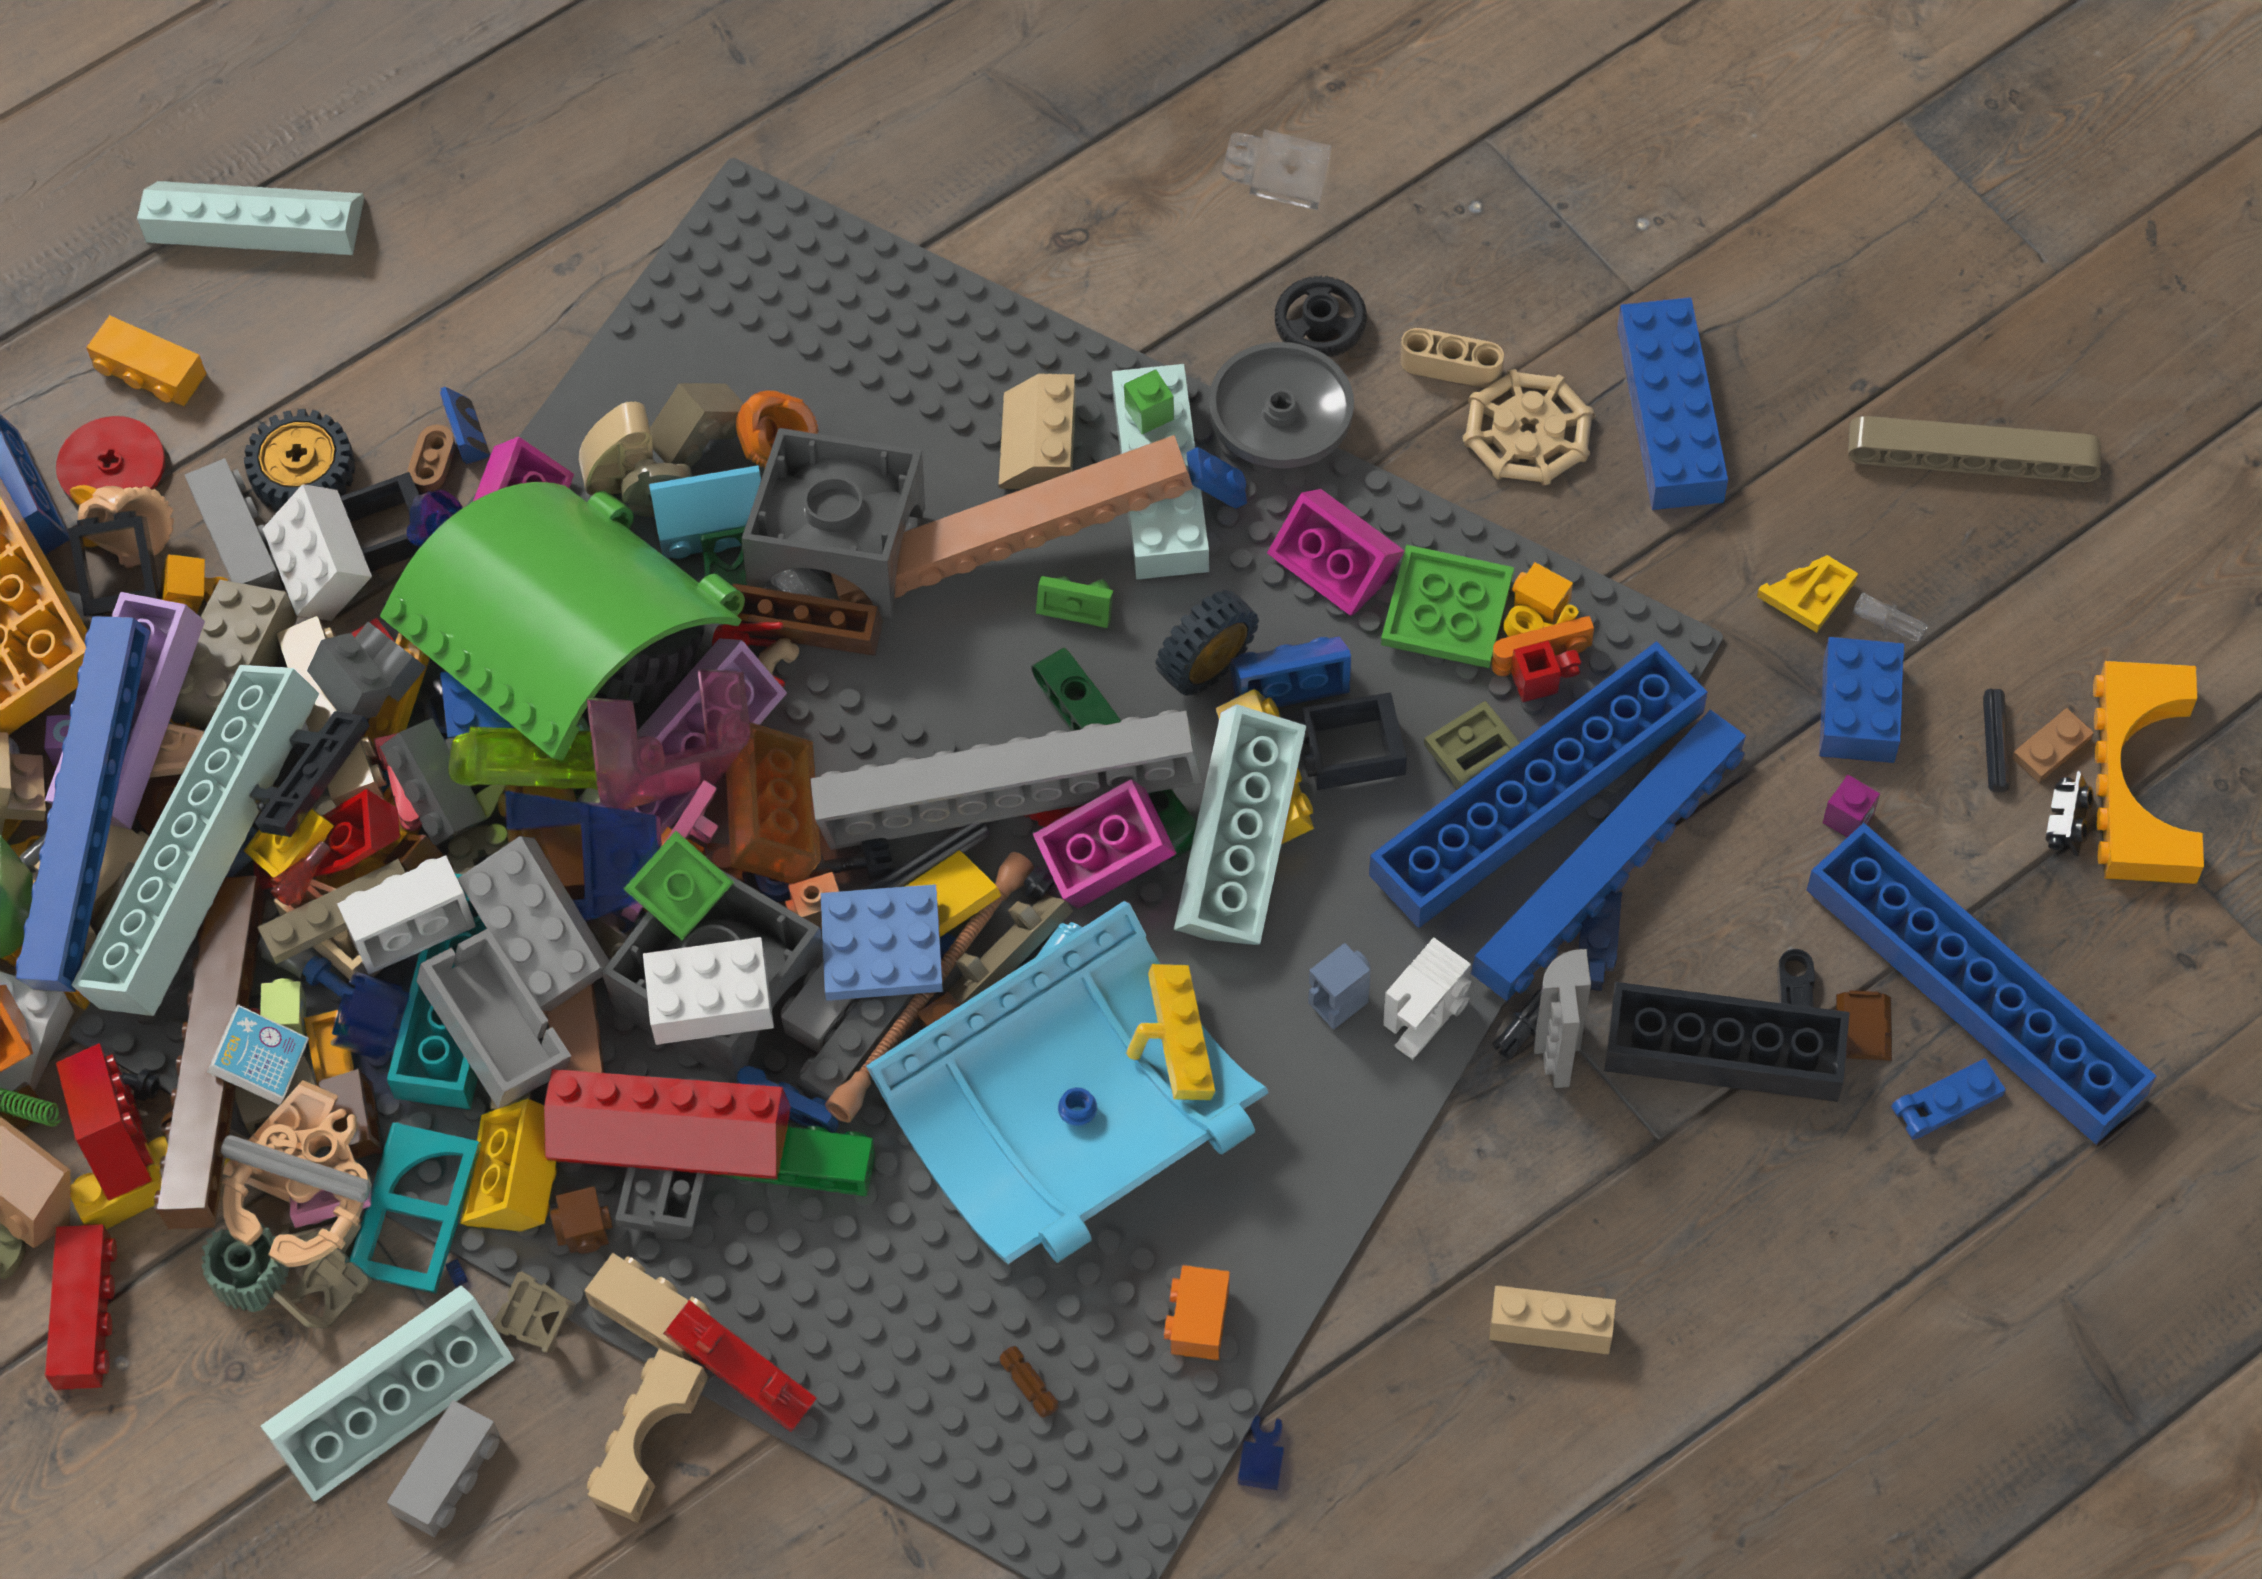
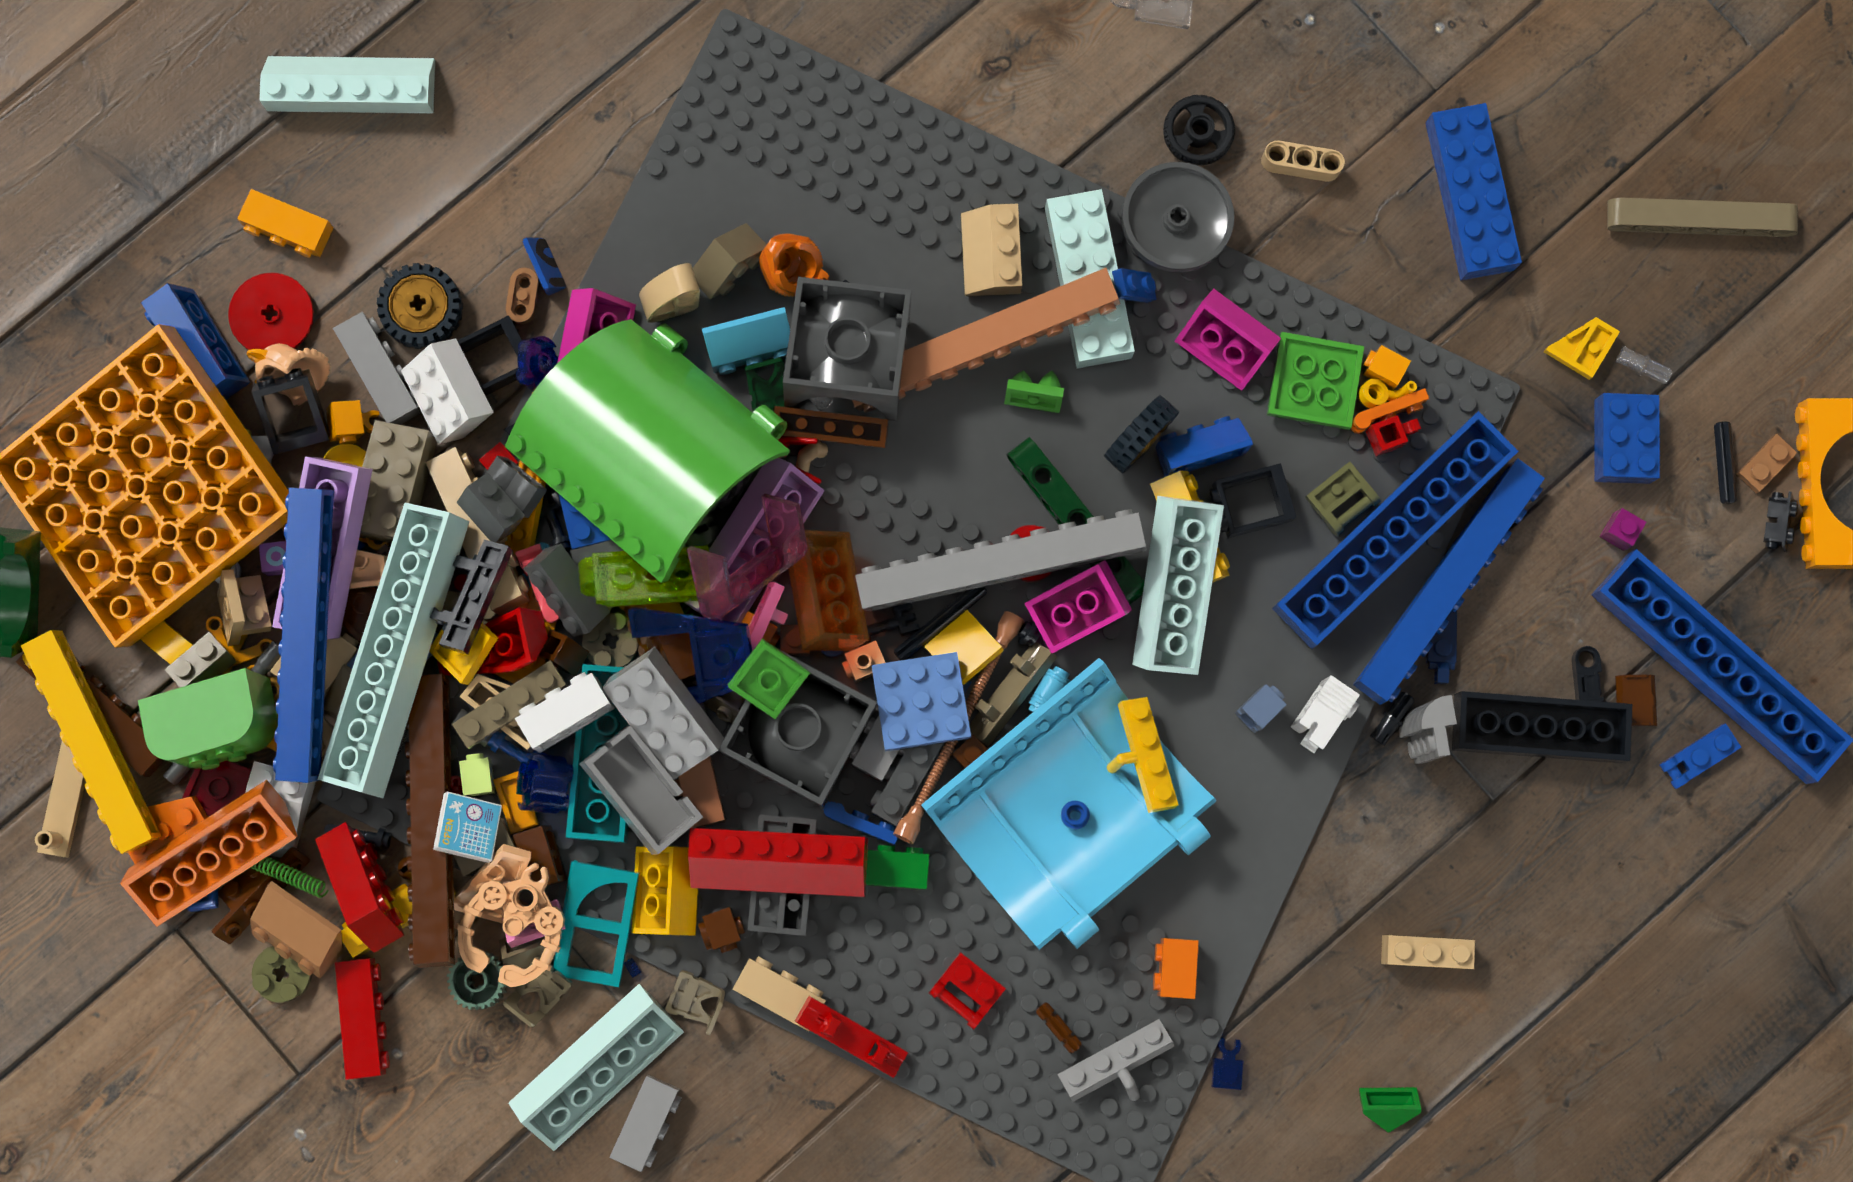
camera: 15 degrees left, 20 degrees up
(294, 881) = (474, 684): clear red cone -> none
(296, 1168) = (509, 917): light grey axle -> none
(636, 487) = (700, 318): dark tan plate -> none
(667, 1388) = (777, 1123): tan arch -> none
(708, 990) = (802, 766): white brick -> none
(914, 1314) = (974, 983): none -> red plate
(1105, 1429) = (1117, 1062): none -> light grey plate
(1149, 401) = (1081, 232): bright green brick -> none
(1486, 1525) = (1390, 1106): none -> green slope
(1528, 409) = (1366, 201): tan plate -> none

